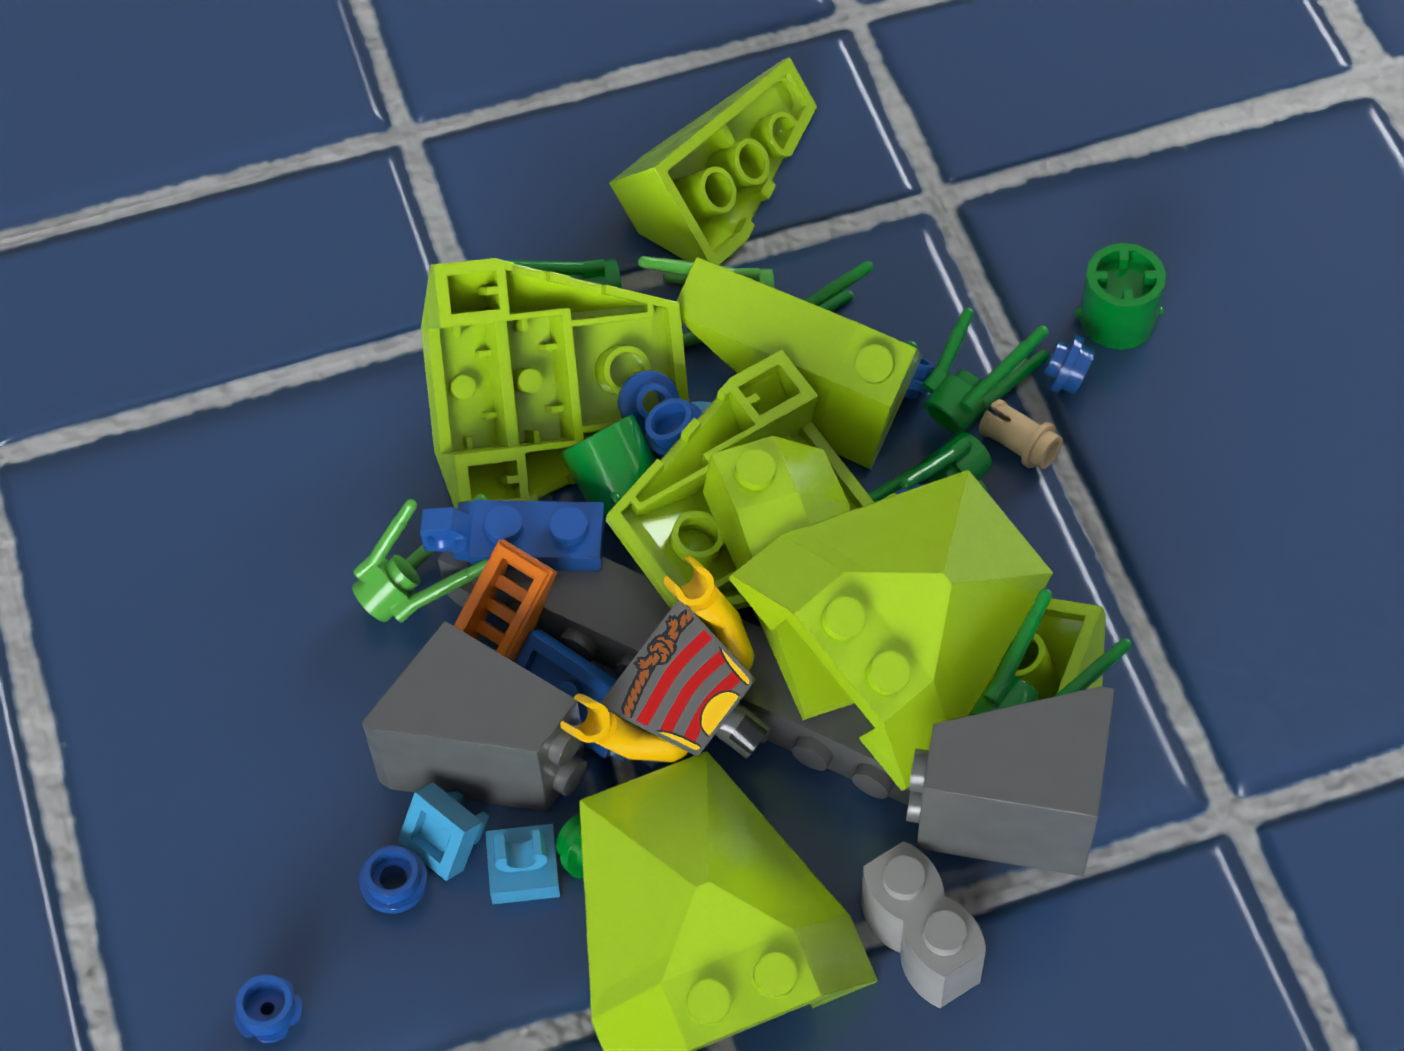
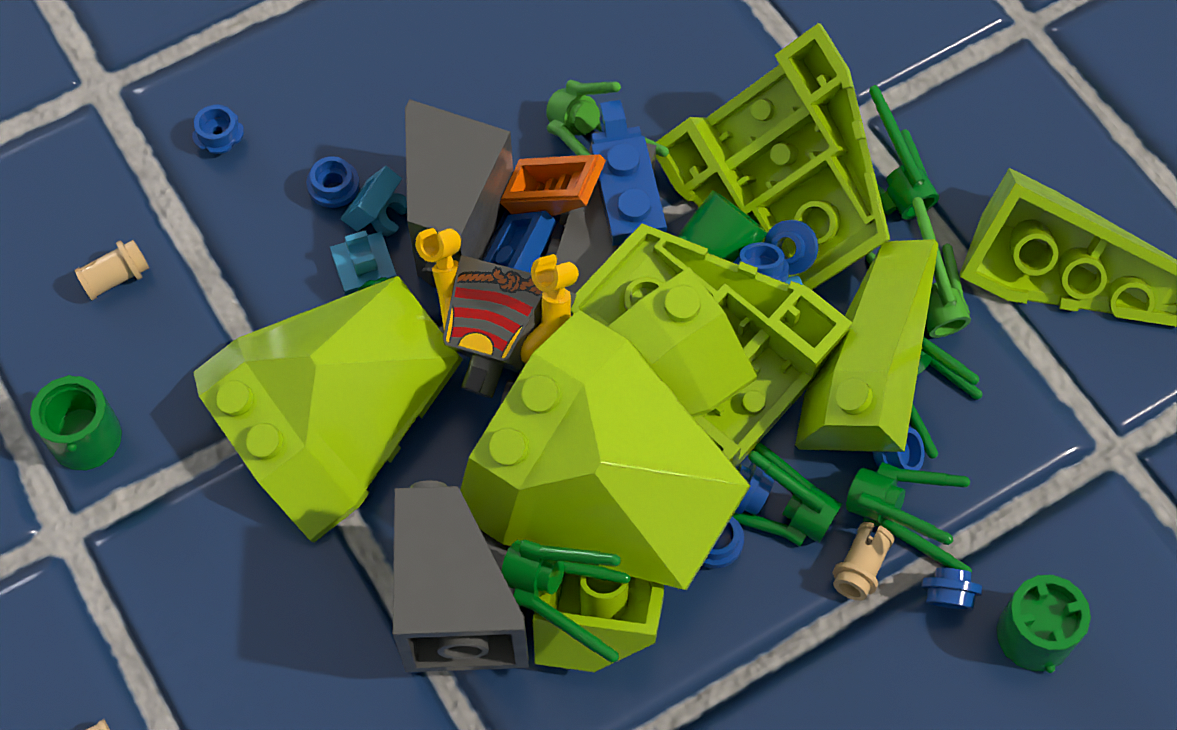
camera: 75 degrees right, 5 degrees up
(933, 933) = (340, 565): light grey brick -> none

